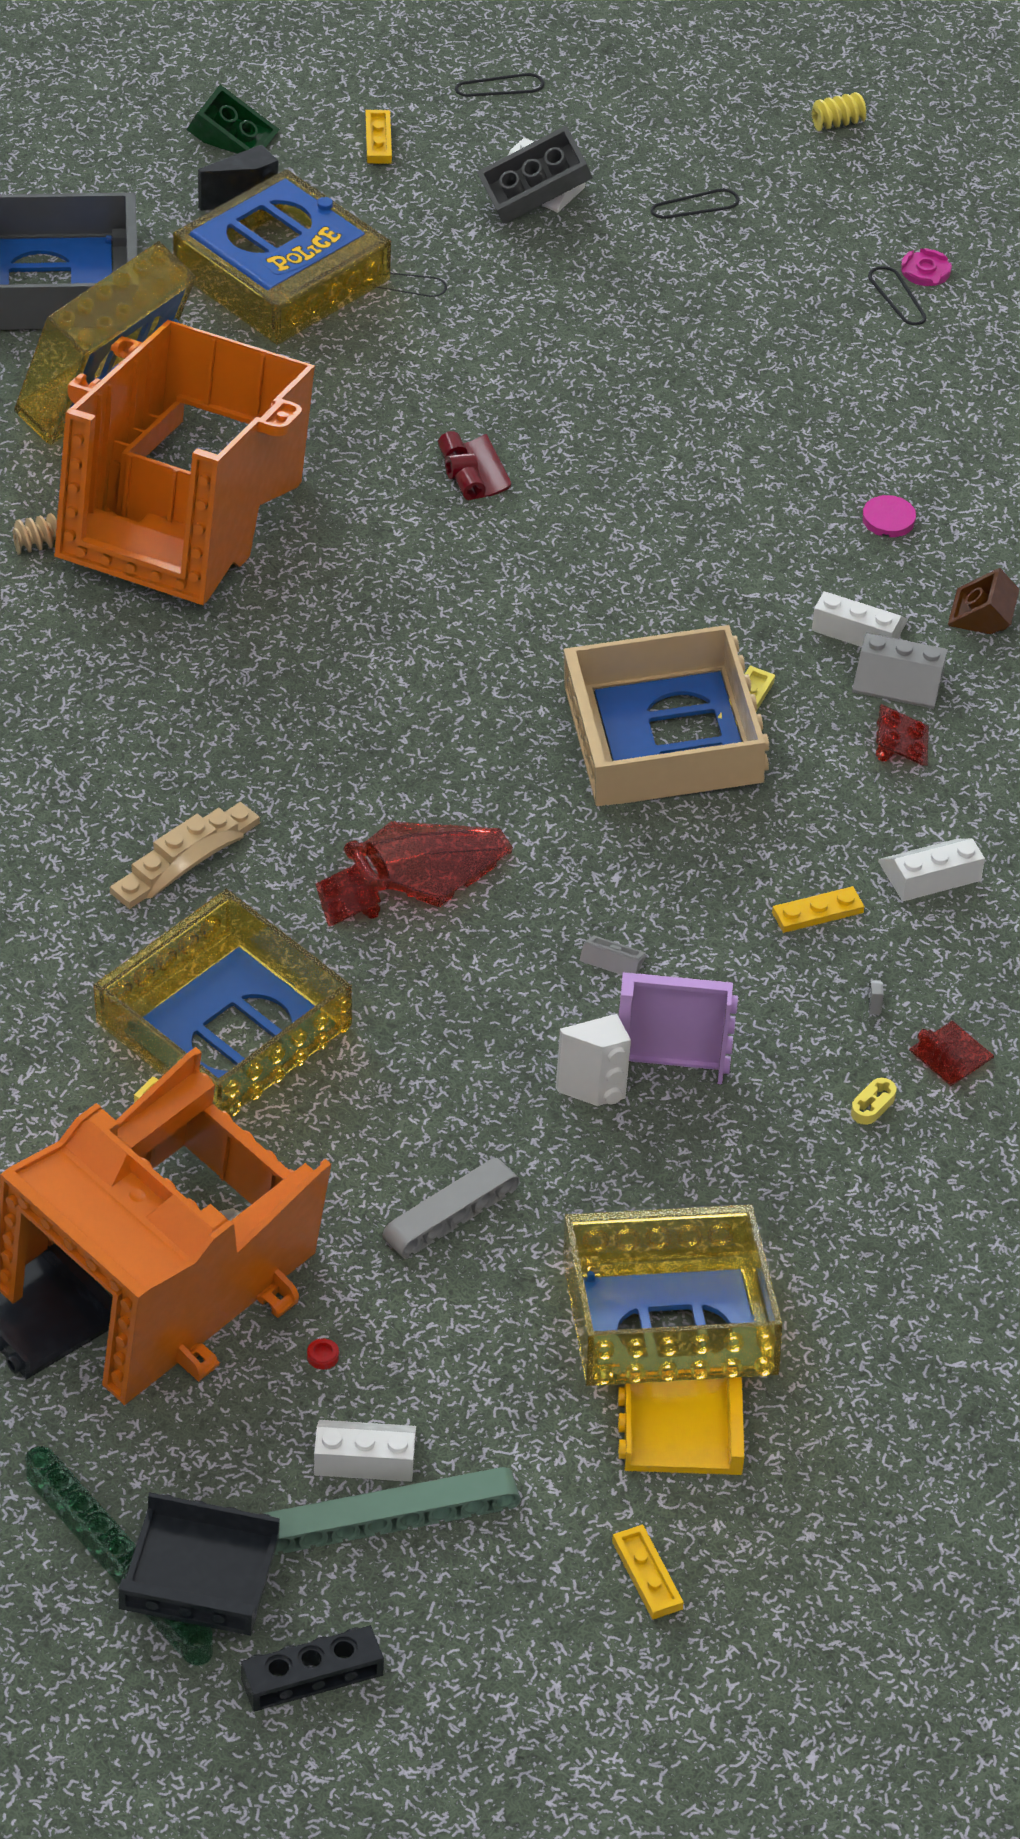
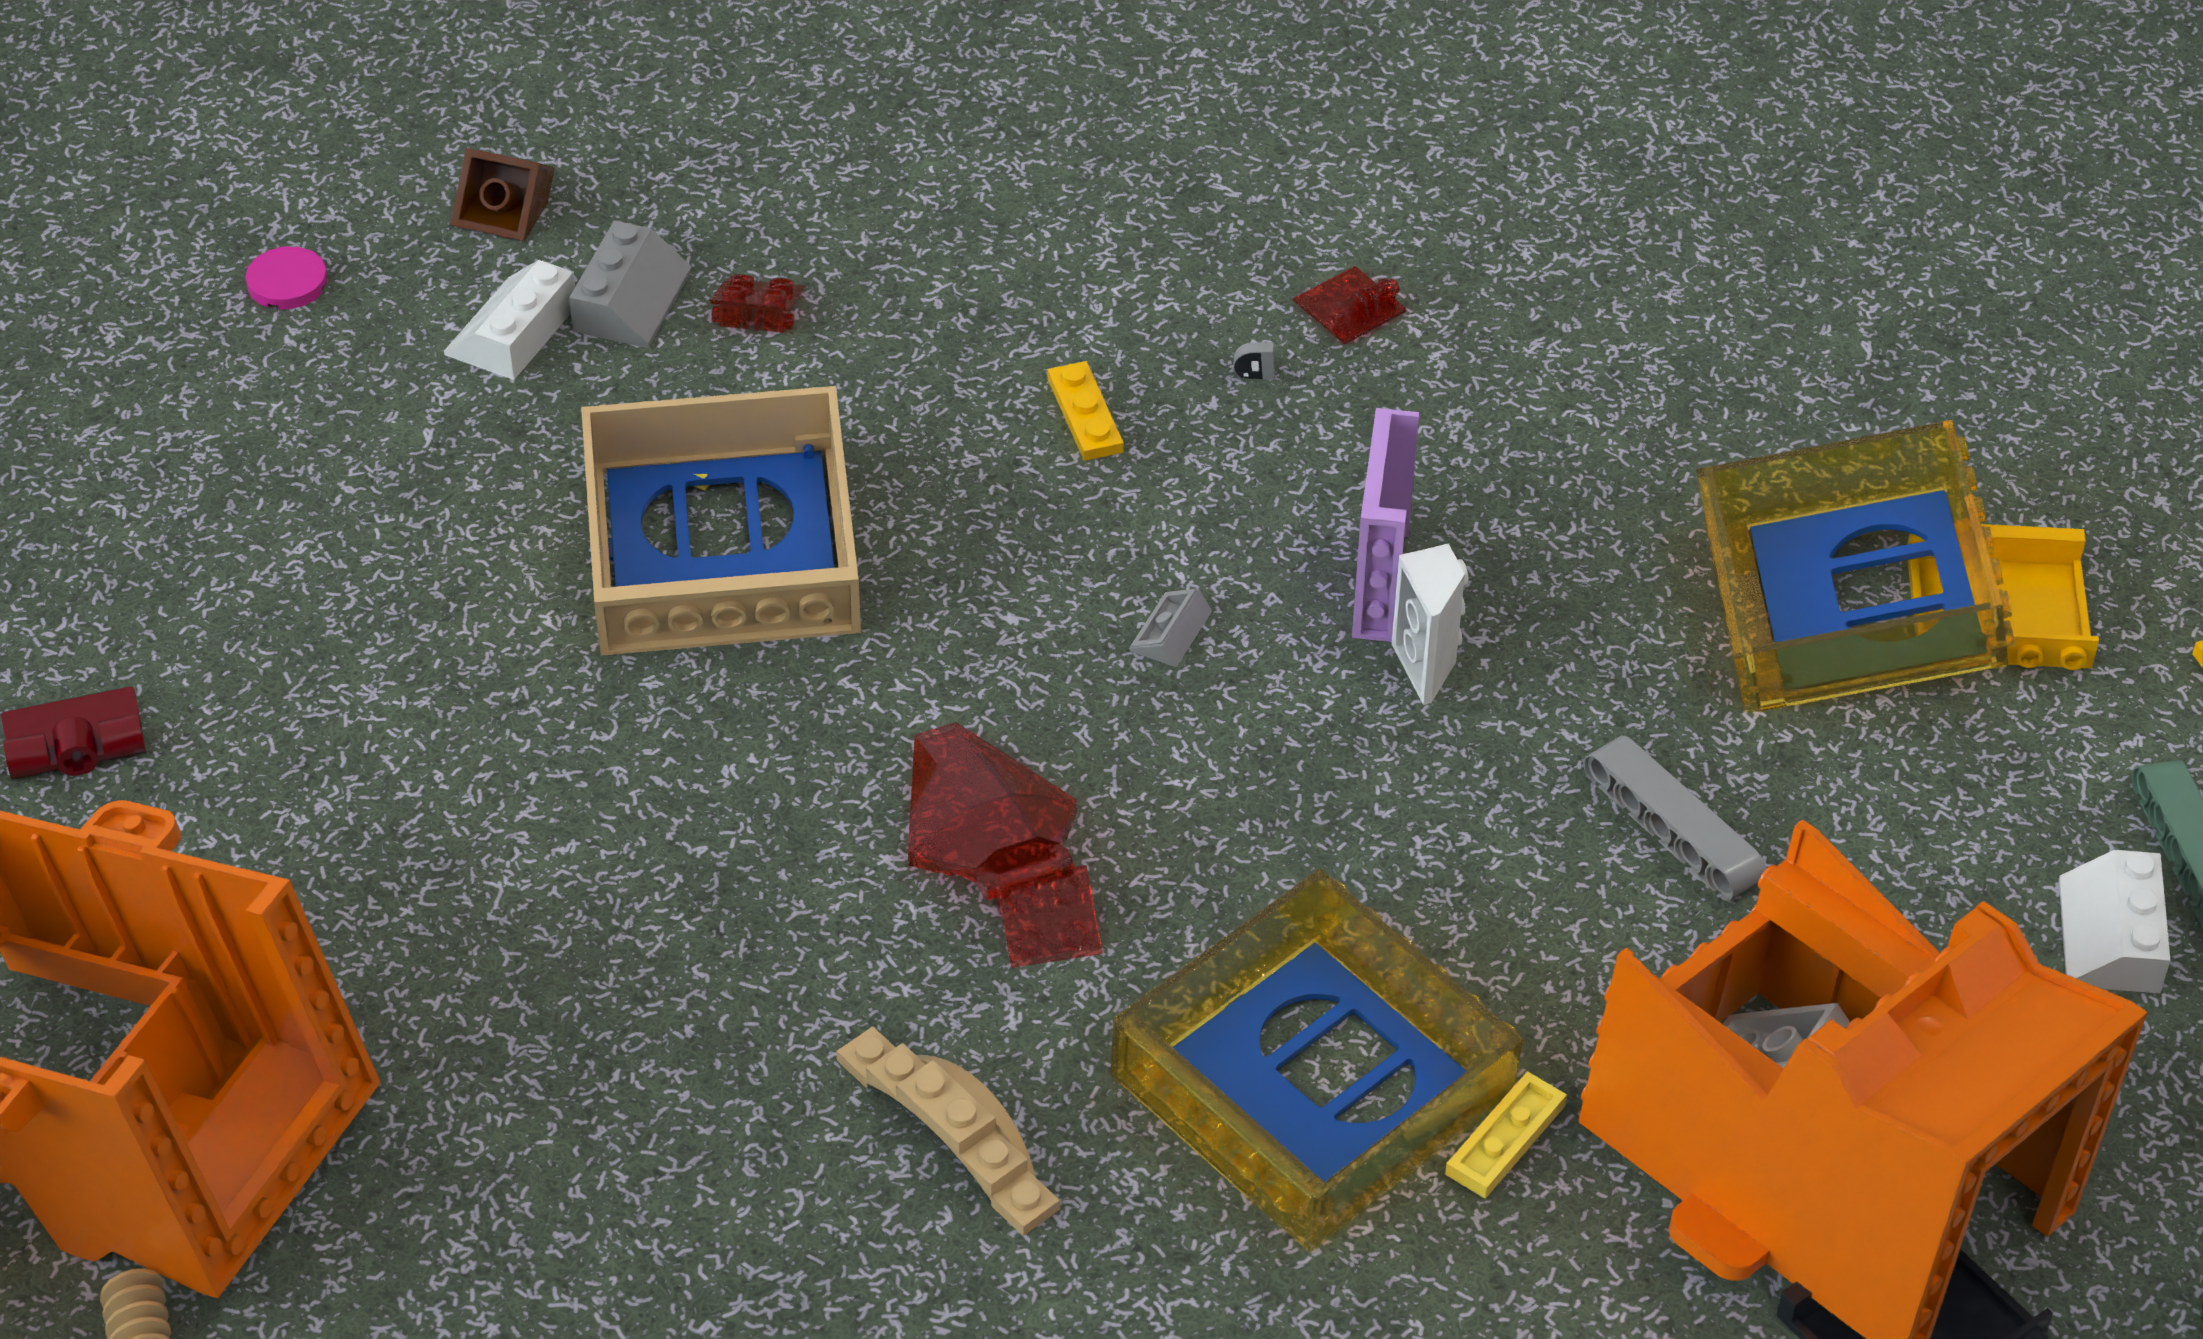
camera: 85 degrees left, 0 degrees up
(869, 1097) = (1439, 382): light yellow beam -> none
(934, 868) = (1011, 287): white slope -> none

